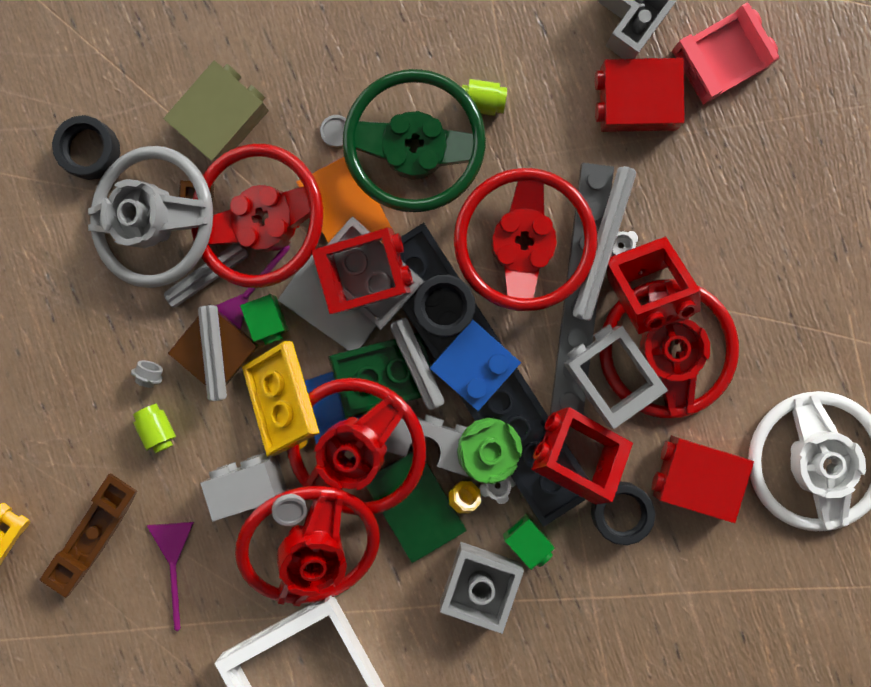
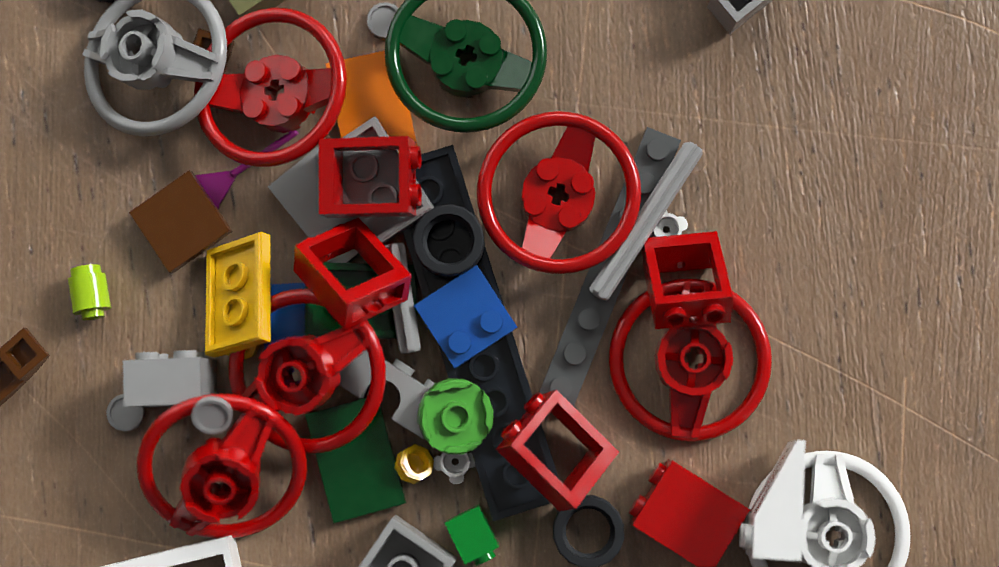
camera: 25 degrees right, 5 degrees down
(147, 373) = (99, 229): light grey plate -> none
(171, 542) = (70, 425): magenta piece -> none
(203, 276) = (193, 139): light grey axle -> none
(209, 527) = (123, 417): none -> light grey piece
(212, 353) = (178, 224): light grey axle -> none
(265, 319) = (247, 204): green brick -> none
(391, 377) = (364, 300): none -> red window
(487, 96) = (560, 26): lime brick -> none
(635, 401) = (633, 405): light grey window -> none
(640, 94) = (730, 69): red brick -> none
(726, 53) = (837, 51): coral panel -> none
(779, 456) = (777, 513): none -> white slope

